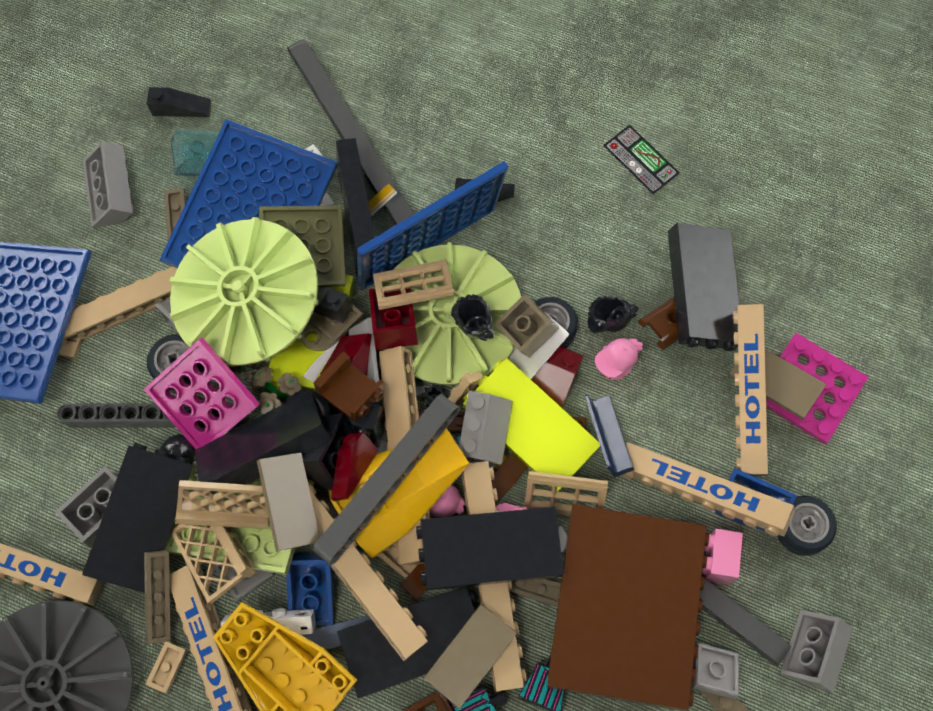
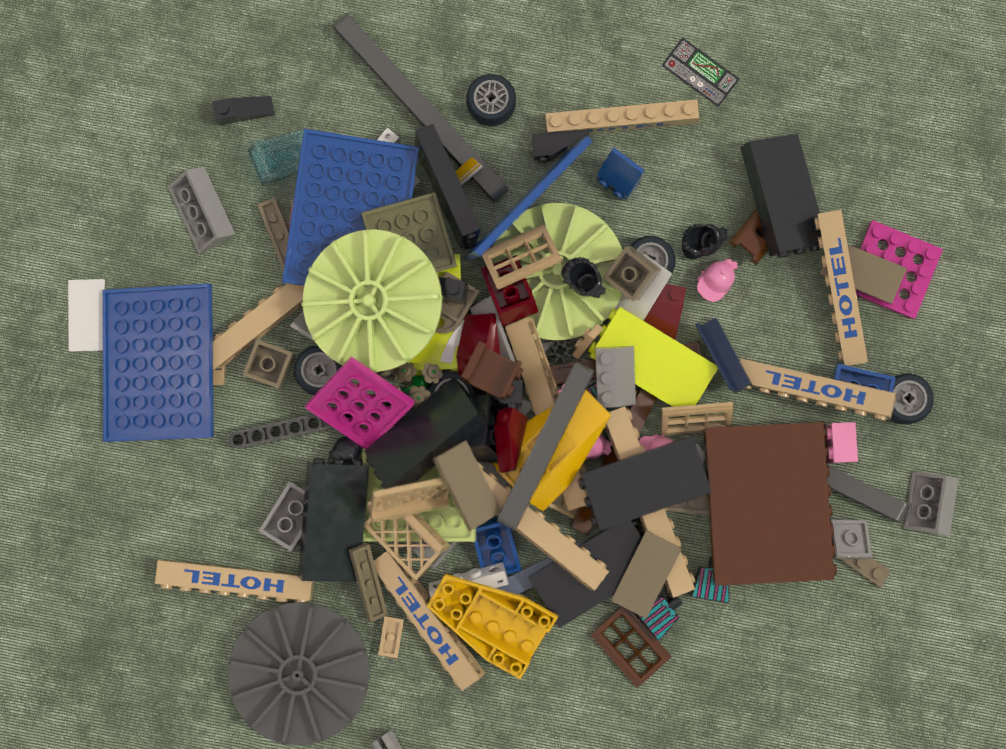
camera: 10 degrees left, 15 degrees up
(124, 344) = (269, 364): none -> dark tan brick
(424, 141) = (503, 101): none -> wheel
(537, 230) = (620, 174): none -> blue slope
(563, 183) = (625, 117): none -> tan brick

